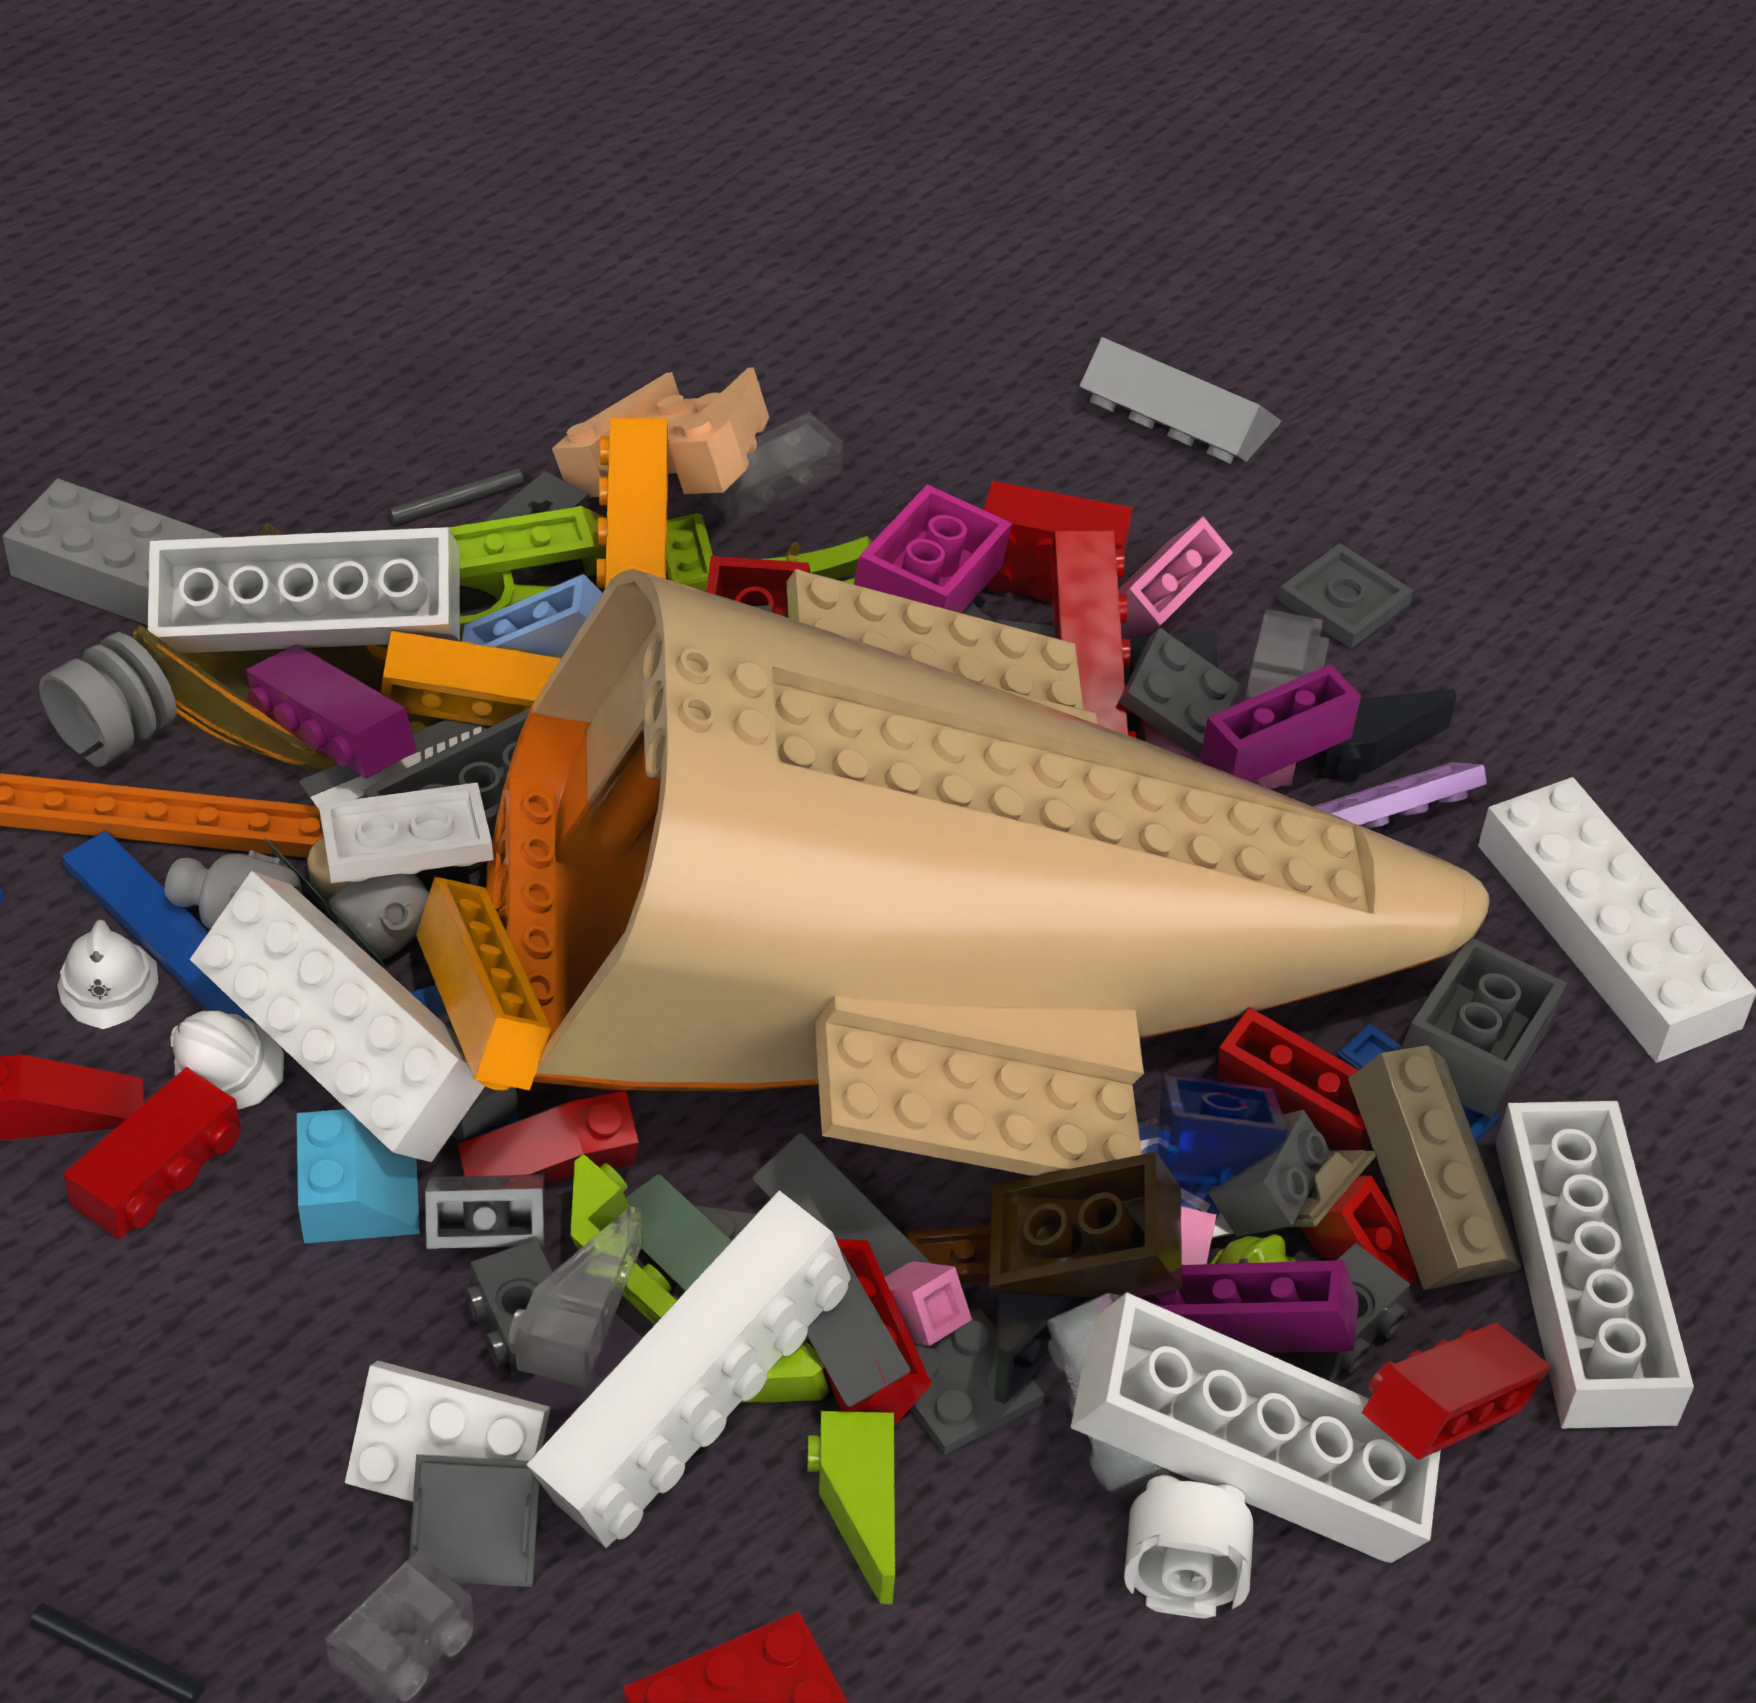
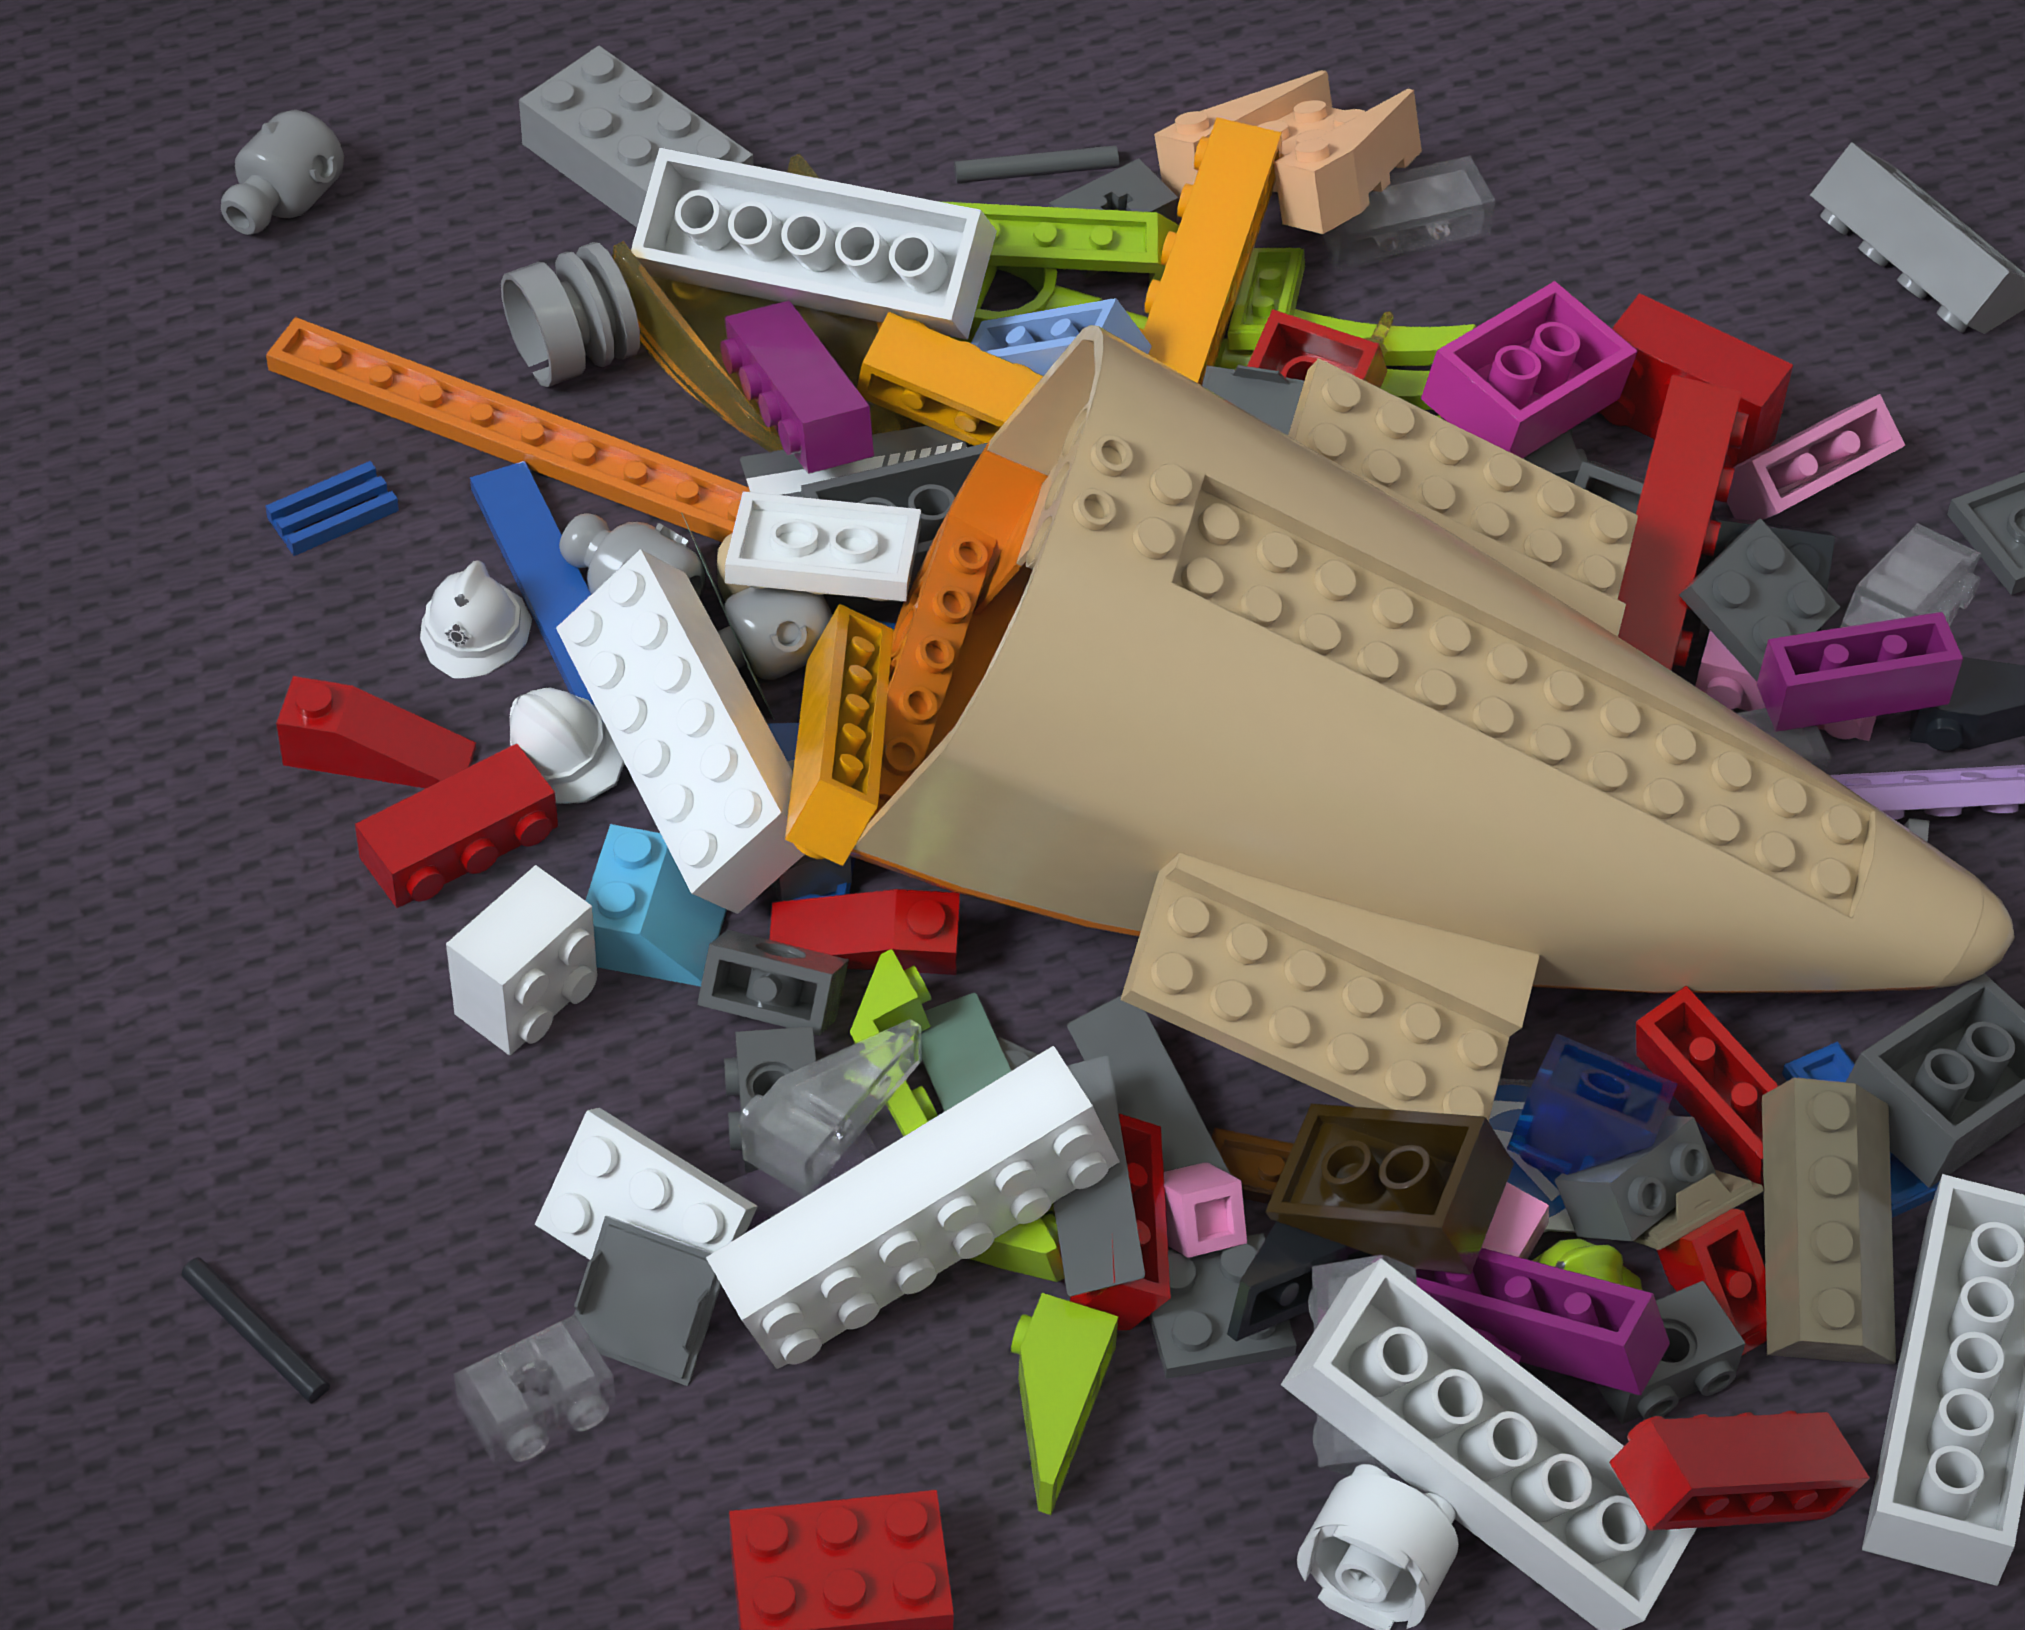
camera: 20 degrees right, 5 degrees up
(259, 1252) = (523, 961): none -> white brick

